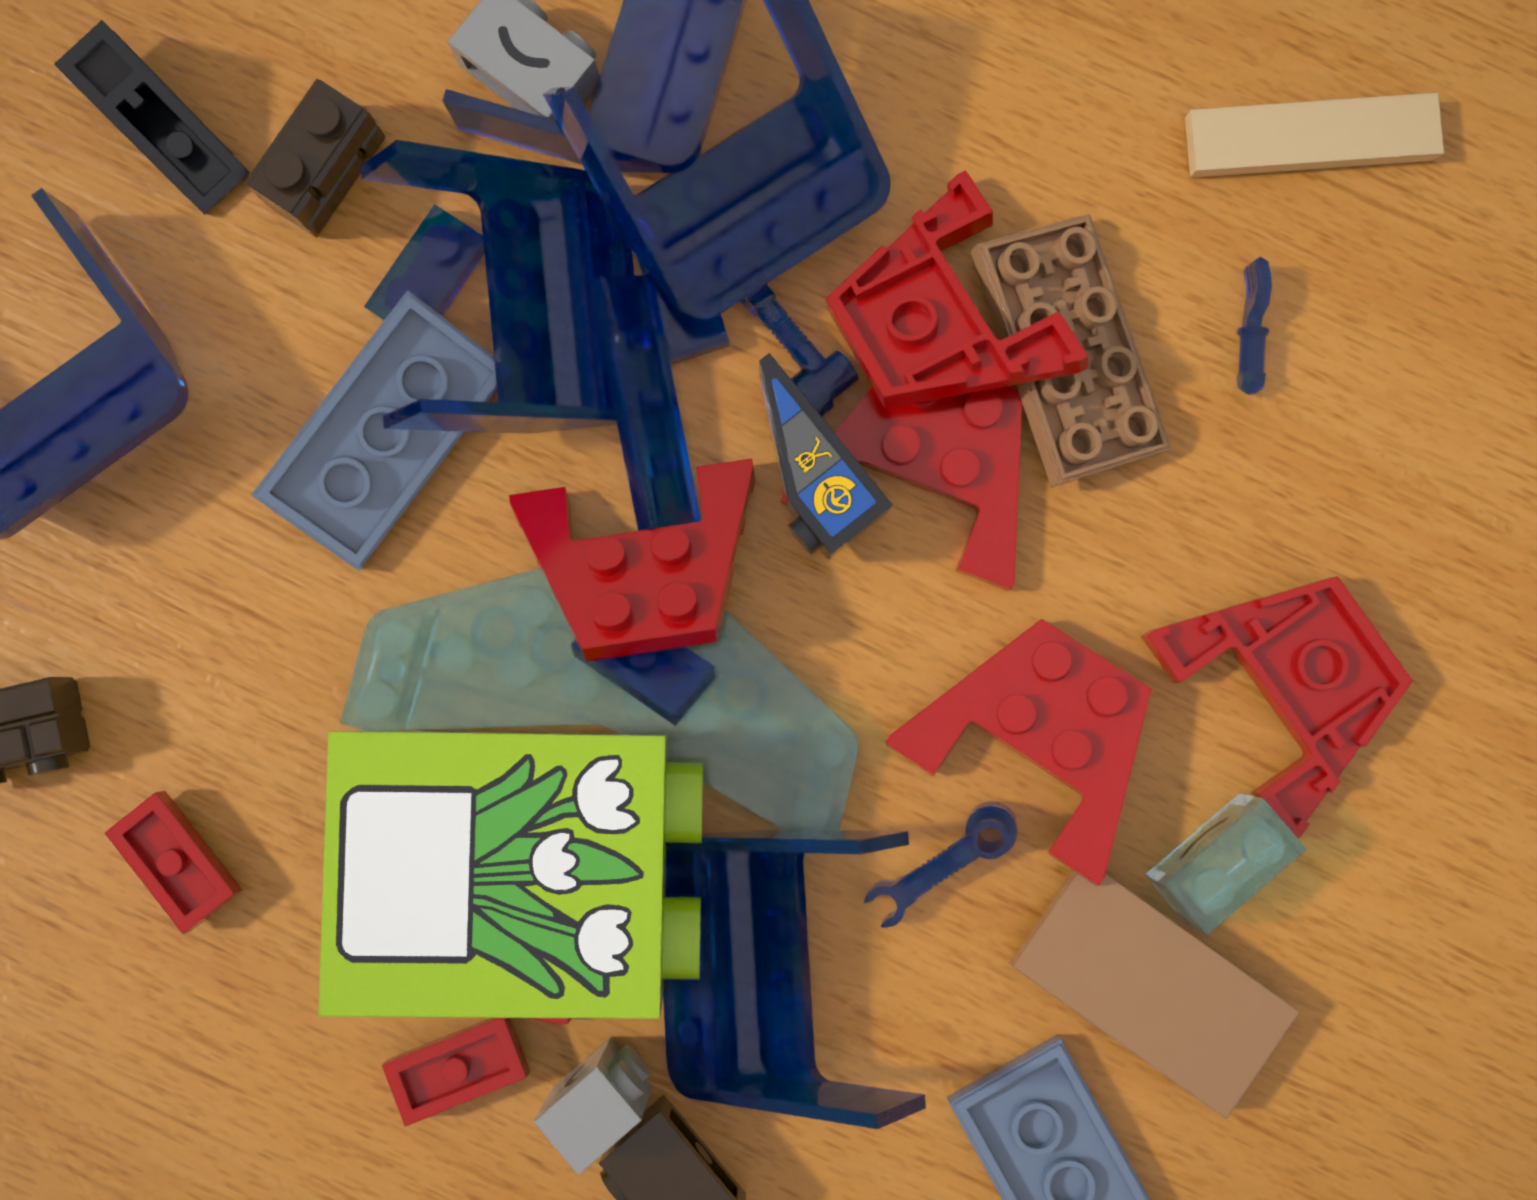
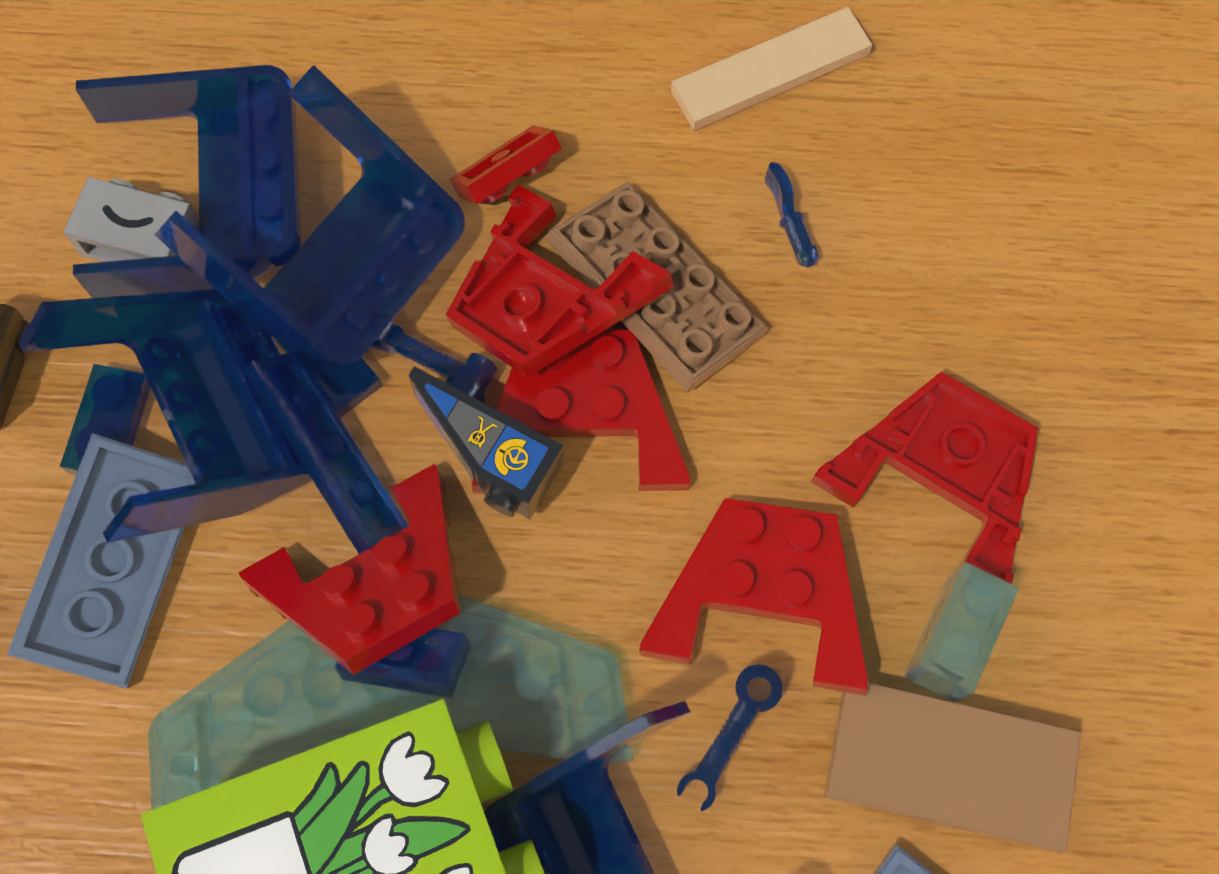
camera: 25 degrees left, 15 degrees down
(961, 141) = (520, 156): none -> red plate

